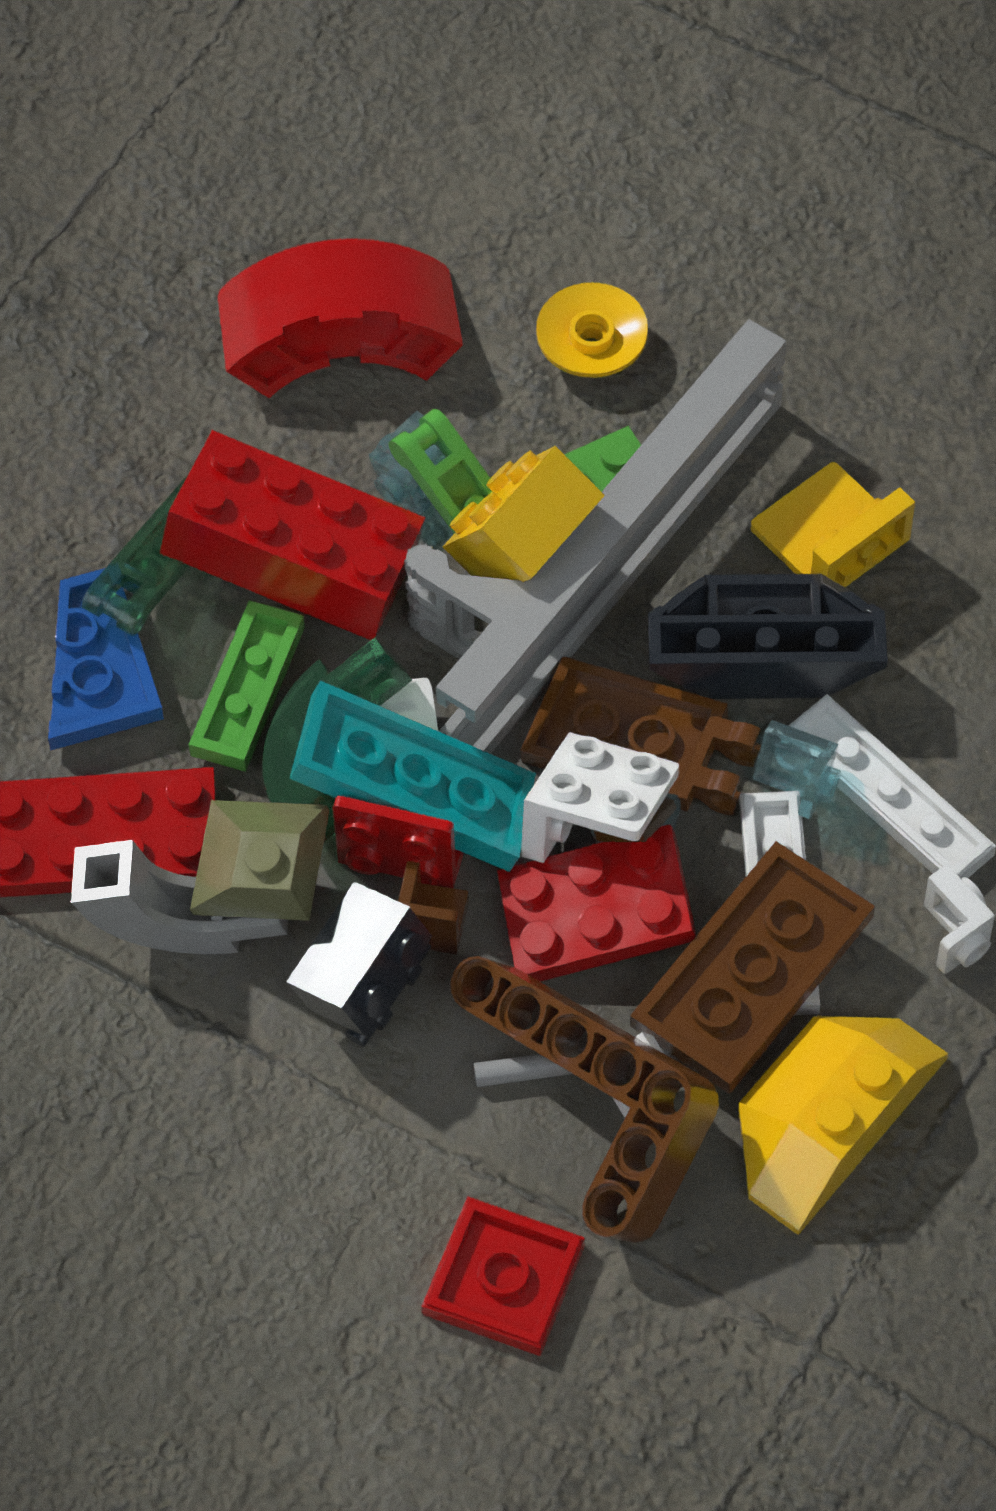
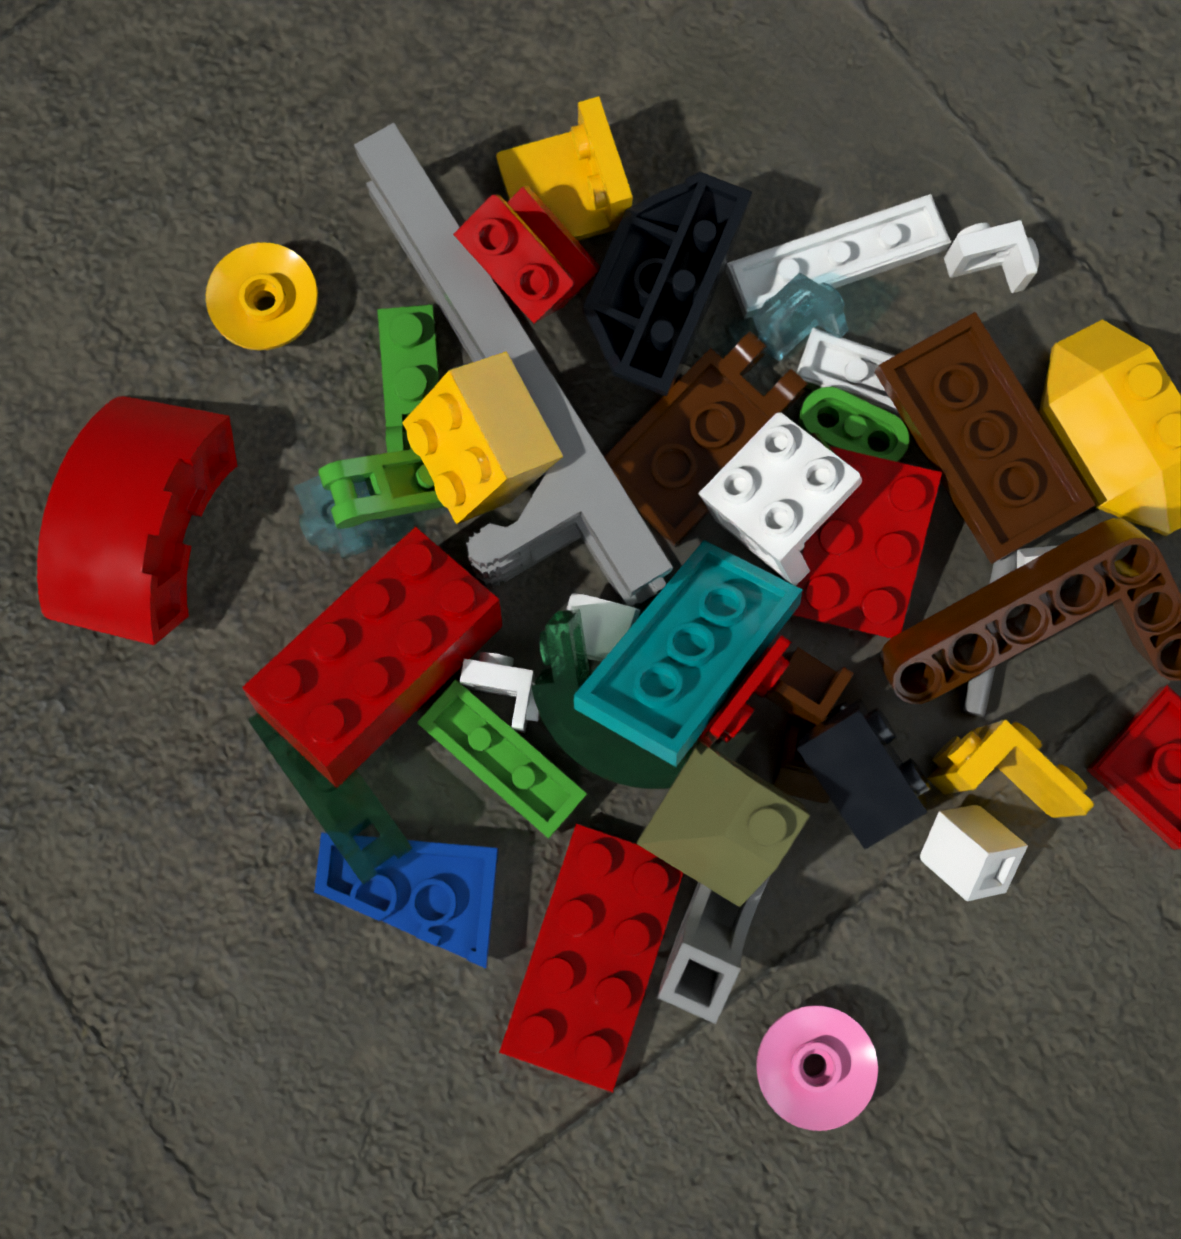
camera: 70 degrees left, 20 degrees up
(62, 1022) = (839, 1089): none -> bright pink dish
(319, 643) = (496, 675): none -> white bracket
(333, 1112) = (972, 852): none -> white panel
(426, 1064) = (1017, 755): none -> yellow bracket
(711, 865) = (855, 423): none -> bright green plate
(724, 503) = (527, 252): none -> red panel

